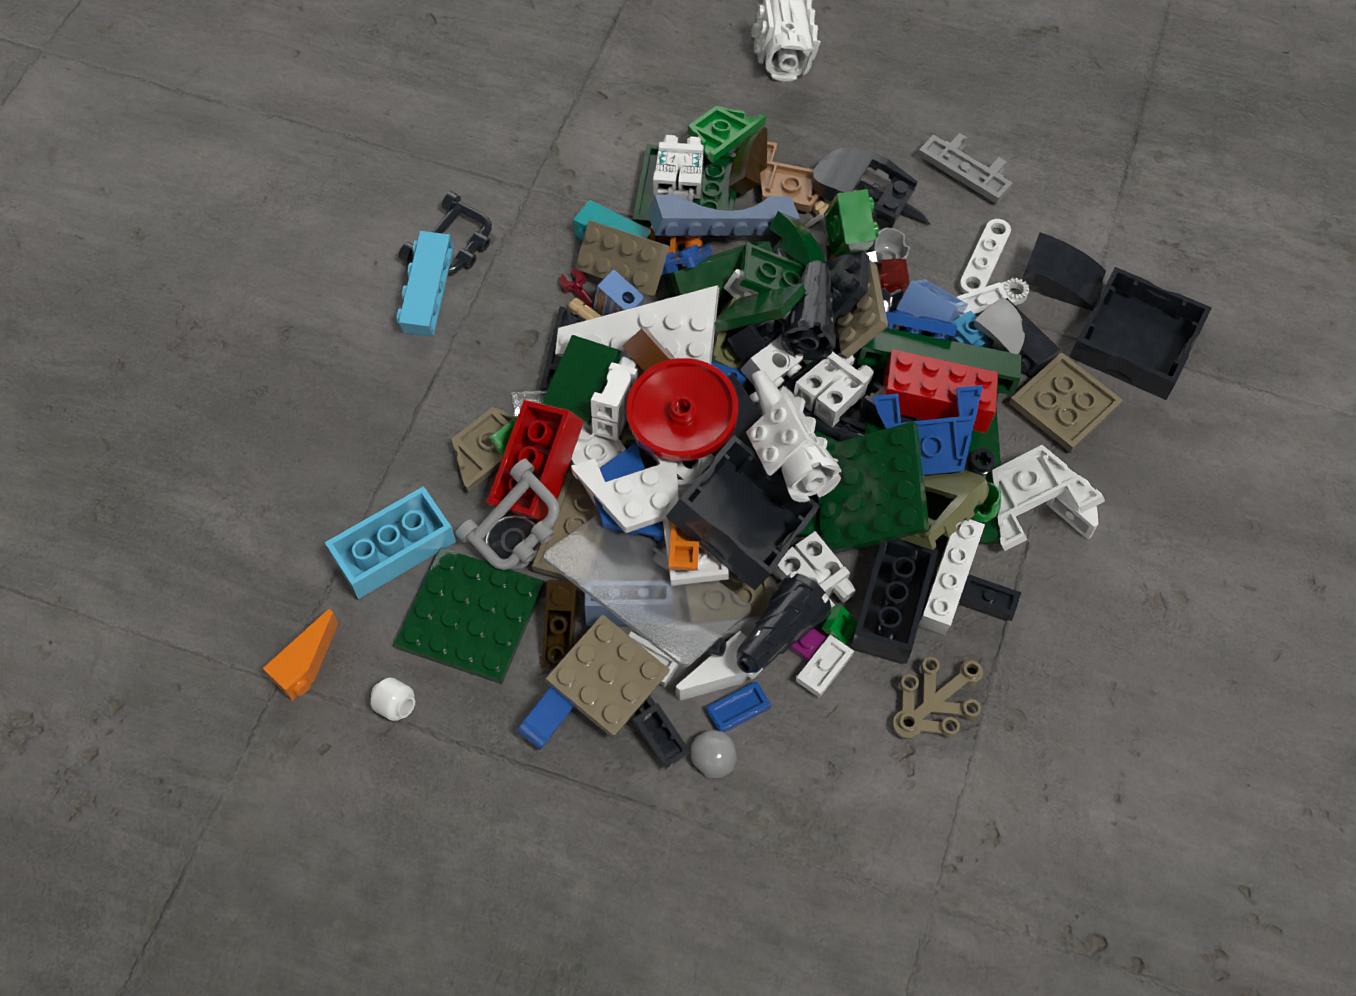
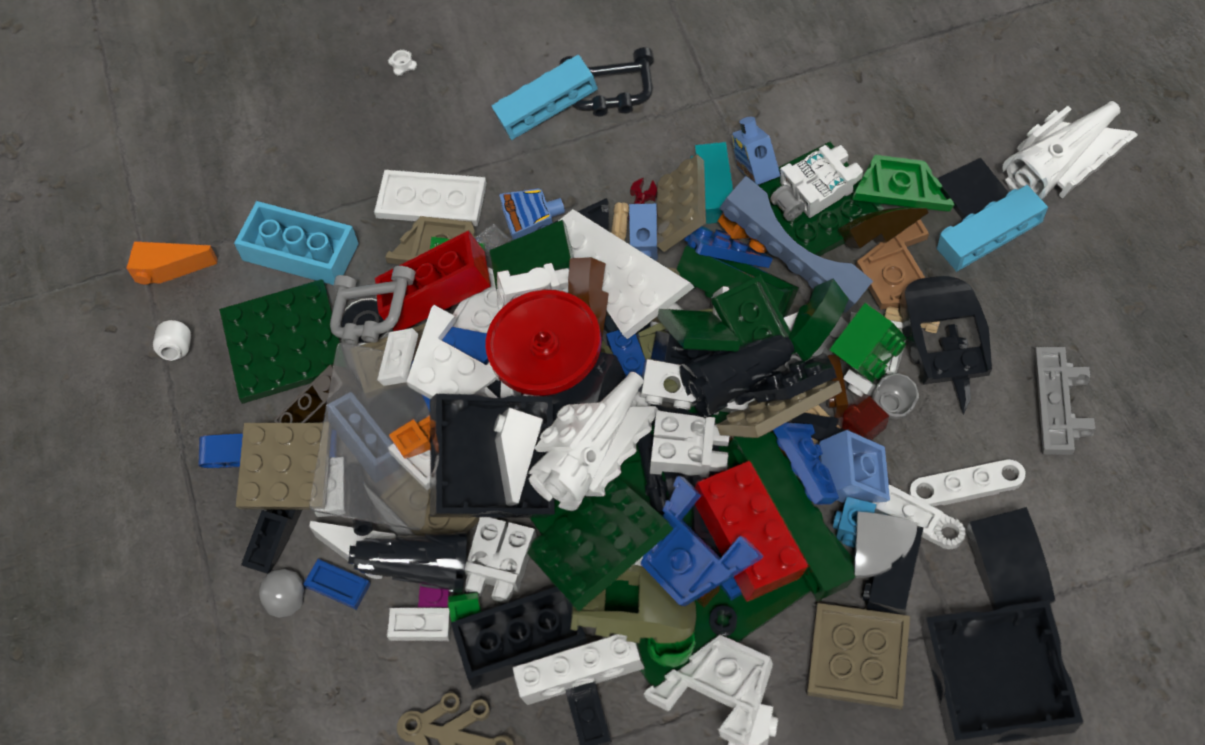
camera: 60 degrees right, 0 degrees up
(276, 355) = (402, 62): none -> white plate
(435, 421) = (418, 194): none -> white plate
(521, 365) = (528, 211): none -> torso
(592, 523) = (397, 357): none -> white plate
(620, 188) = (754, 152): none -> medium blue torso
(751, 493) = (515, 446): none -> white slope
(762, 97) = (972, 187): none -> black tile
(804, 110) = (991, 227): none -> medium azure brick

